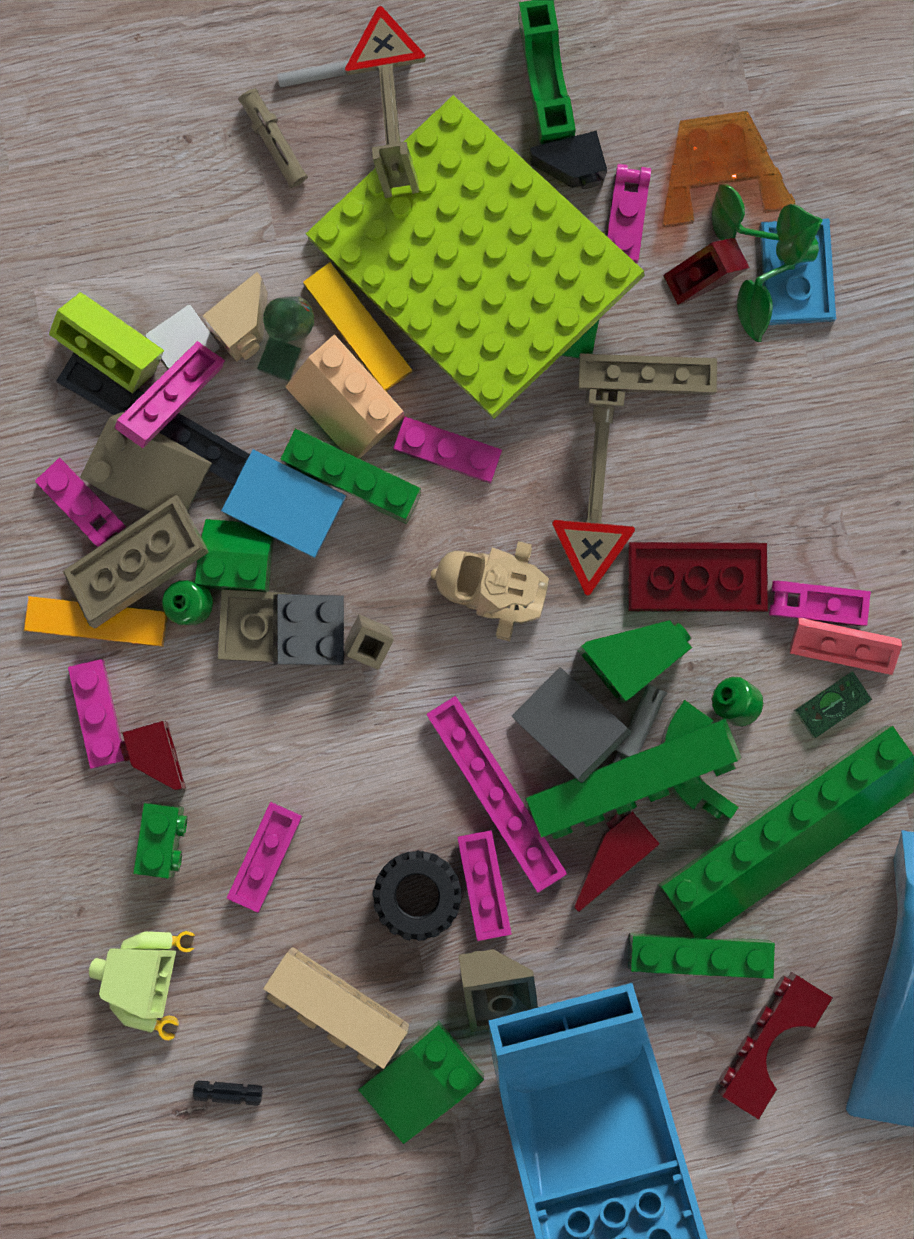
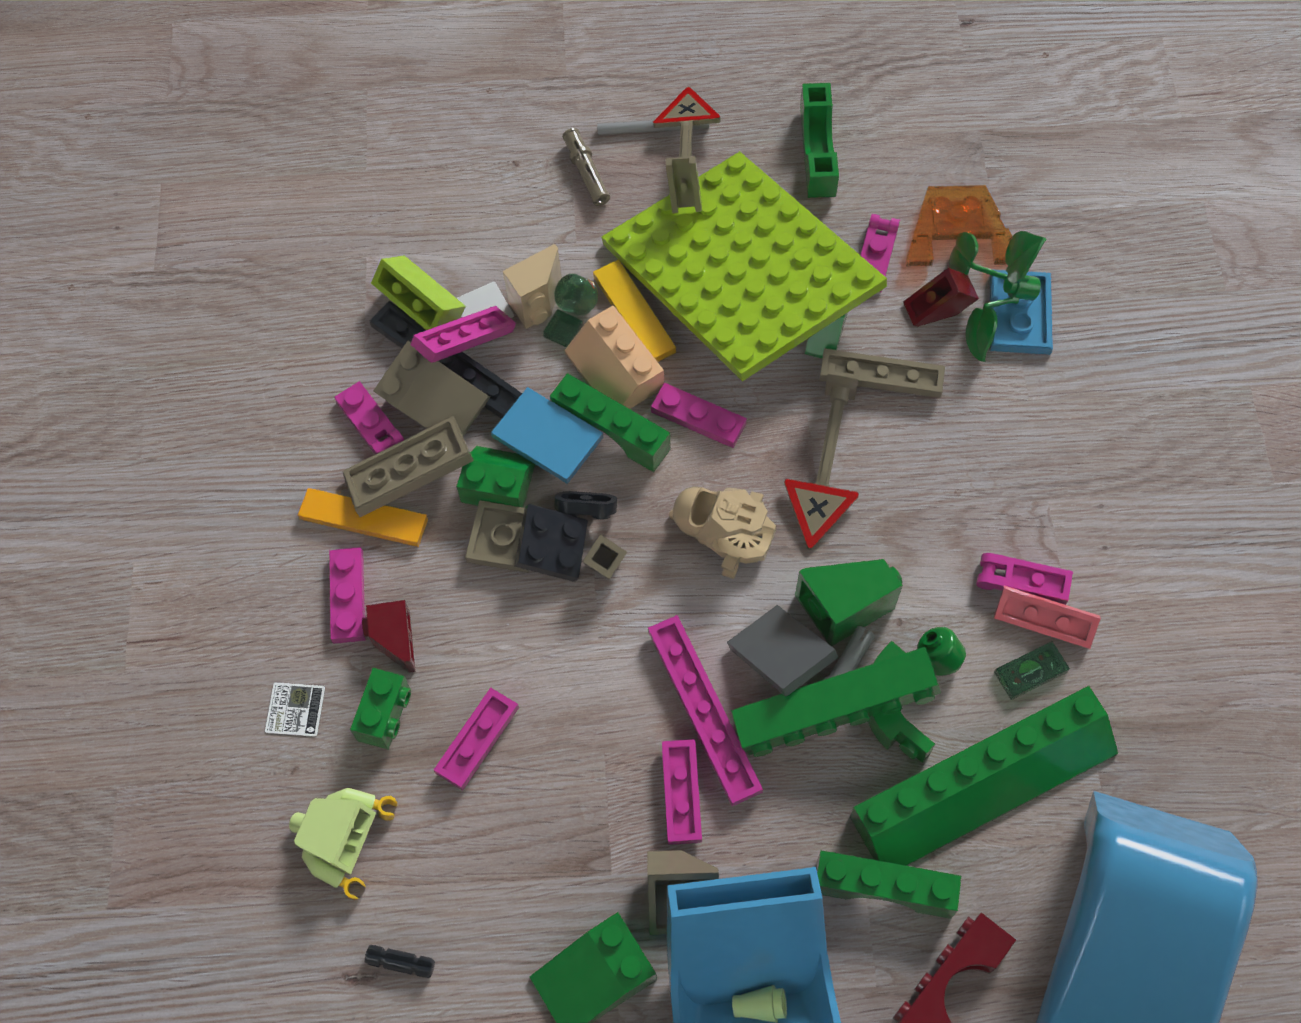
camera: 10 degrees right, 20 degrees down
(67, 846) = (295, 709): none -> sticker
(187, 603) = (447, 506): green head -> none
(337, 1008) = (519, 880): tan brick -> none
(338, 577) = (598, 505): none -> black plate
(417, 926) = (606, 763): black tyre -> none
(572, 160) = (834, 205): black slope -> none
(592, 1090) = (762, 1004): none -> yellowish green cone
(617, 852) = (816, 774): dark red slope -> none
(697, 577) = (915, 543): dark red tile -> none

